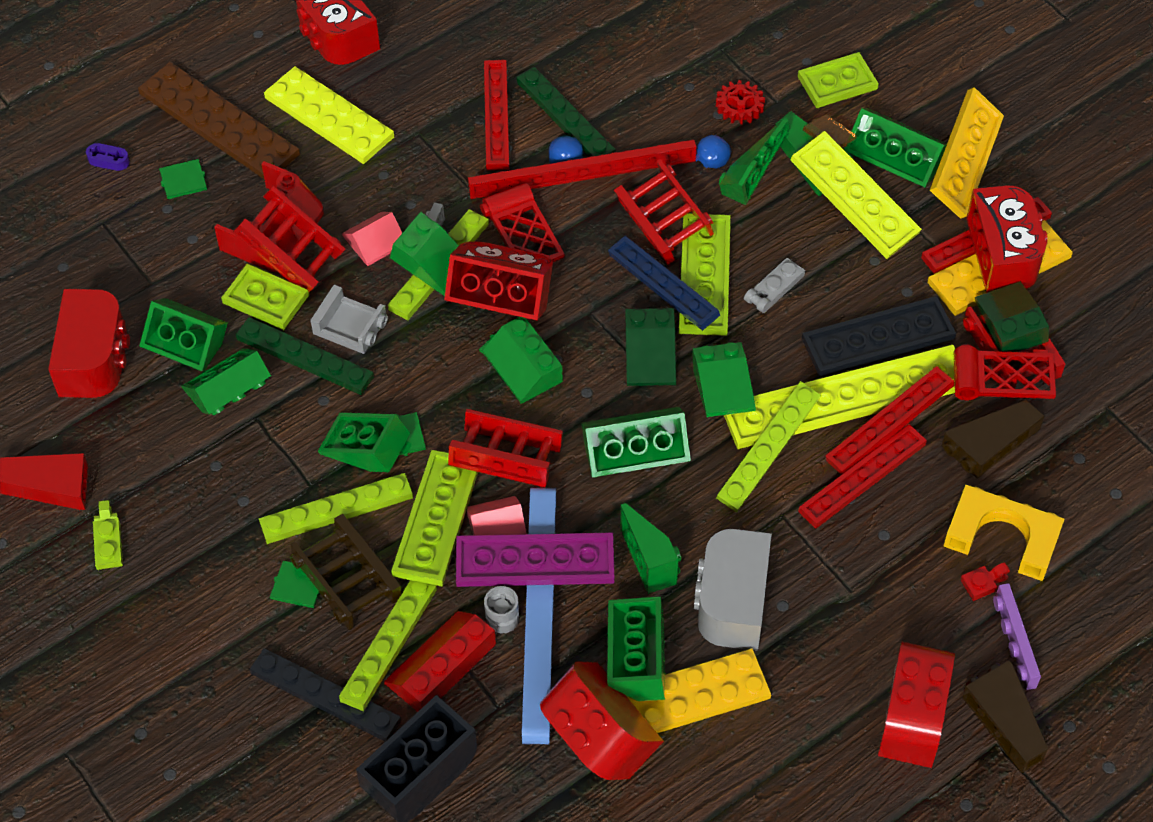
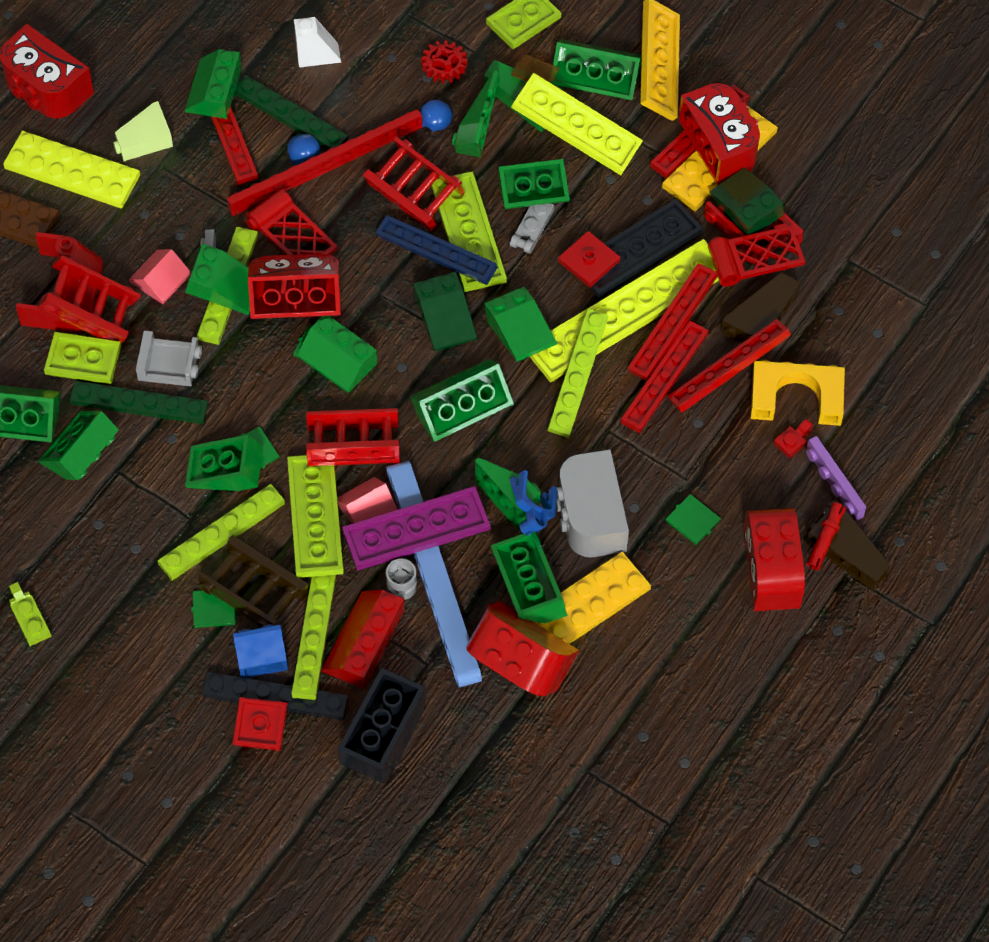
camera: 20 degrees left, 5 degrees up
(296, 719) = (260, 724): none -> red plate
(324, 642) = (260, 651): none -> blue slope
(410, 97) = (143, 134): none -> yellowish green slope
(499, 67) = (214, 84): none -> green slope
(612, 52) = (314, 43): none -> white slope
(665, 581) = (536, 515): none -> blue piece
(788, 242) = (533, 184): none -> green slope
(821, 333) = (589, 259): none -> red plate
(843, 636) = (693, 519): none -> green piece
(936, 482) = (729, 365): none -> red plate
(990, 687) = (829, 528): none -> red pin

